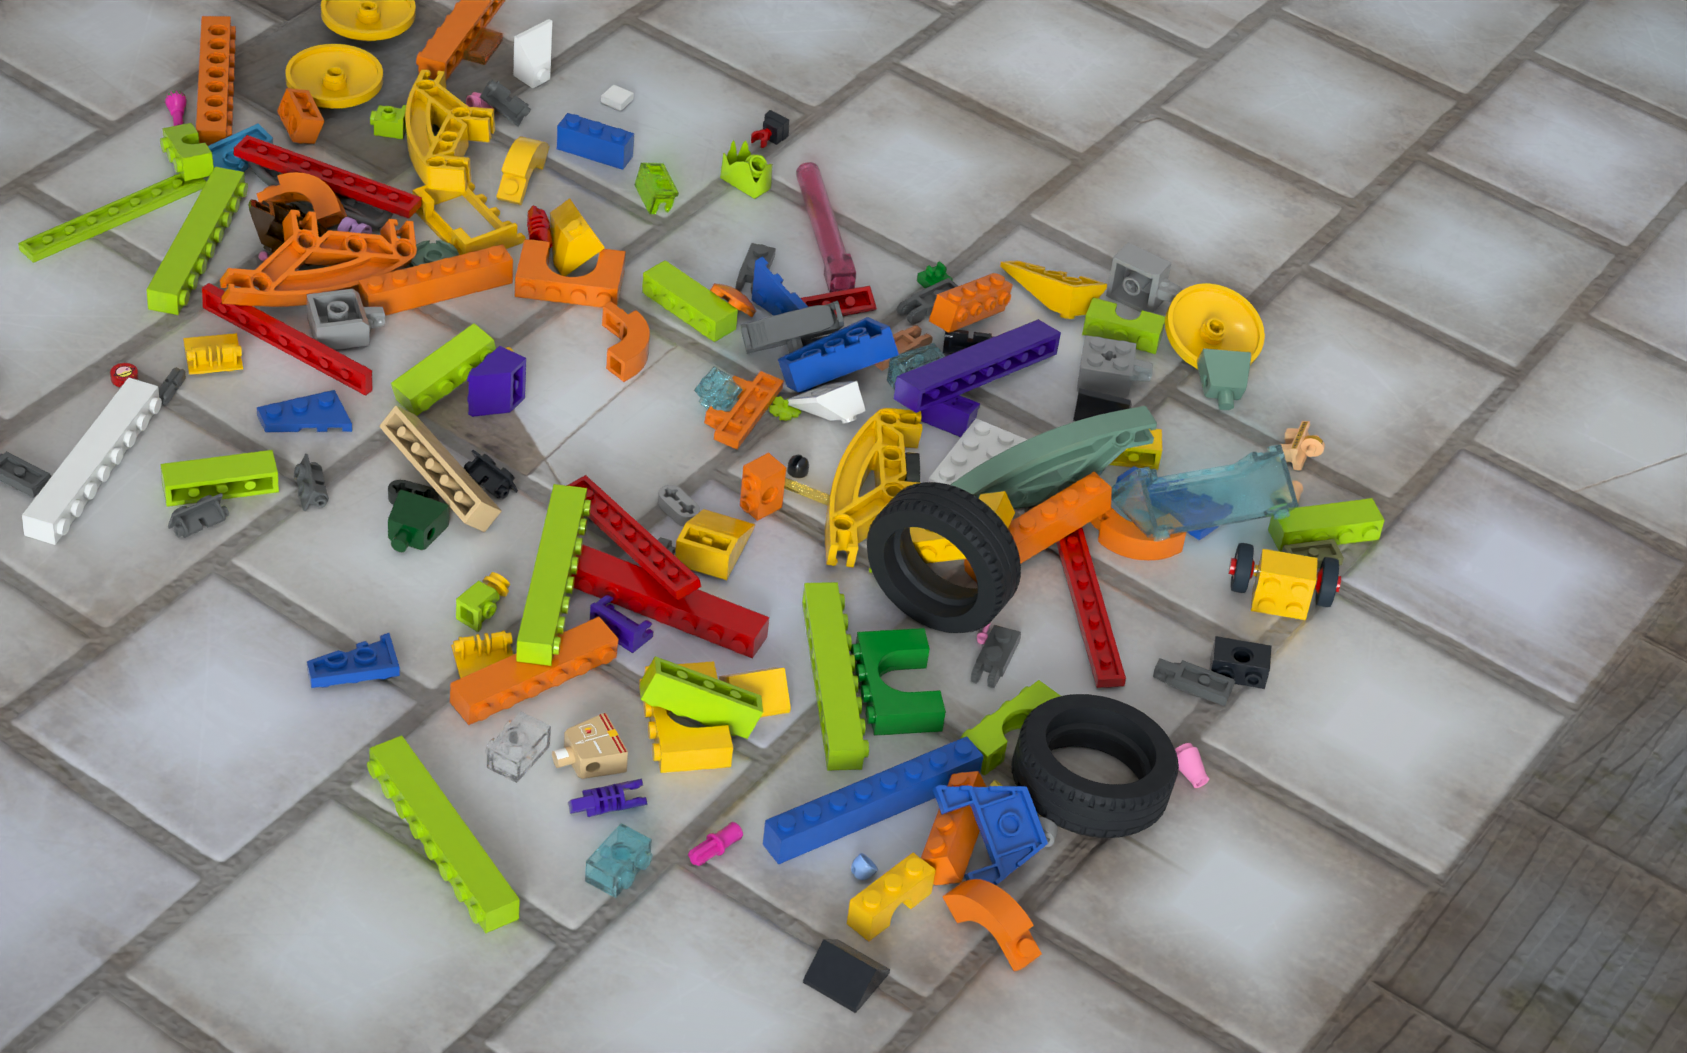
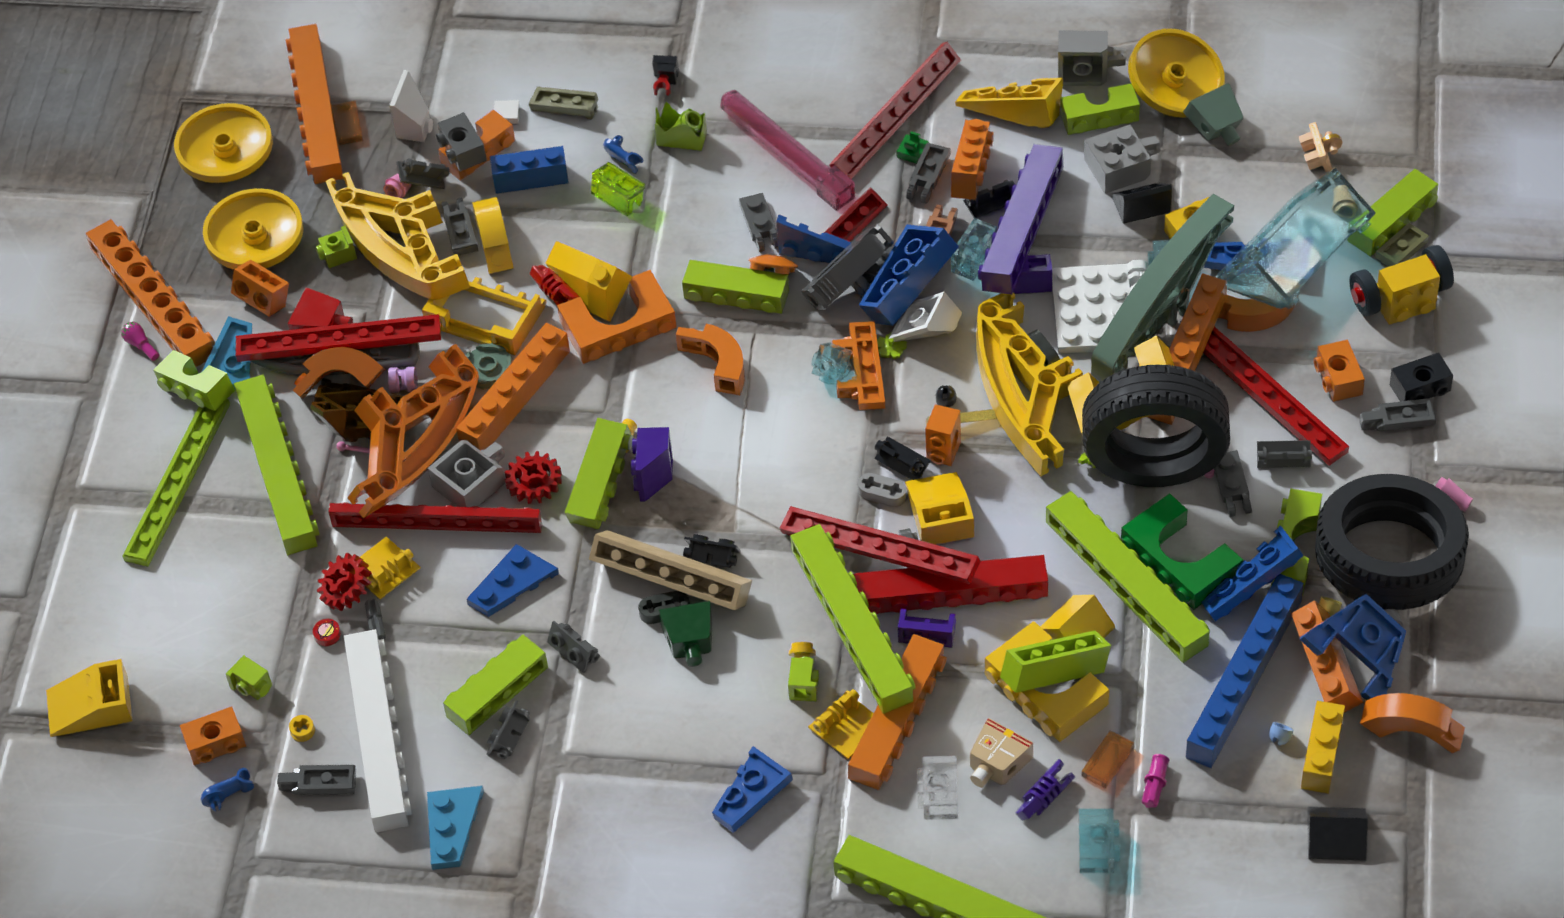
camera: 20 degrees left, 10 degrees up
(29, 372) = (249, 678): none -> lime brick
(38, 430) = (299, 721): none -> yellow bush
(87, 557) = (450, 823): none -> dark azure wing
(168, 343) = (344, 581): none -> red gear
(330, 150) = (317, 311): none -> red torso
(393, 350) = (533, 477): none -> red gear
(496, 155) = (459, 229): none -> dark grey hinge
(550, 90) = (461, 142): none -> dark grey brick
(550, 108) = (495, 134): none -> orange arch
(670, 112) = (564, 101): none -> olive hinge
(680, 161) = (614, 149): none -> blue piece
(689, 806) = (1107, 759): none -> clear orange tile
(714, 489) = (901, 458): none -> black hinge
(942, 245) = (896, 110): none -> plate
(942, 726) = (1252, 575): none -> blue wing
(1060, 655) = (1284, 453): none -> dark grey hinge
(1169, 618) = (1339, 370): none -> orange brick

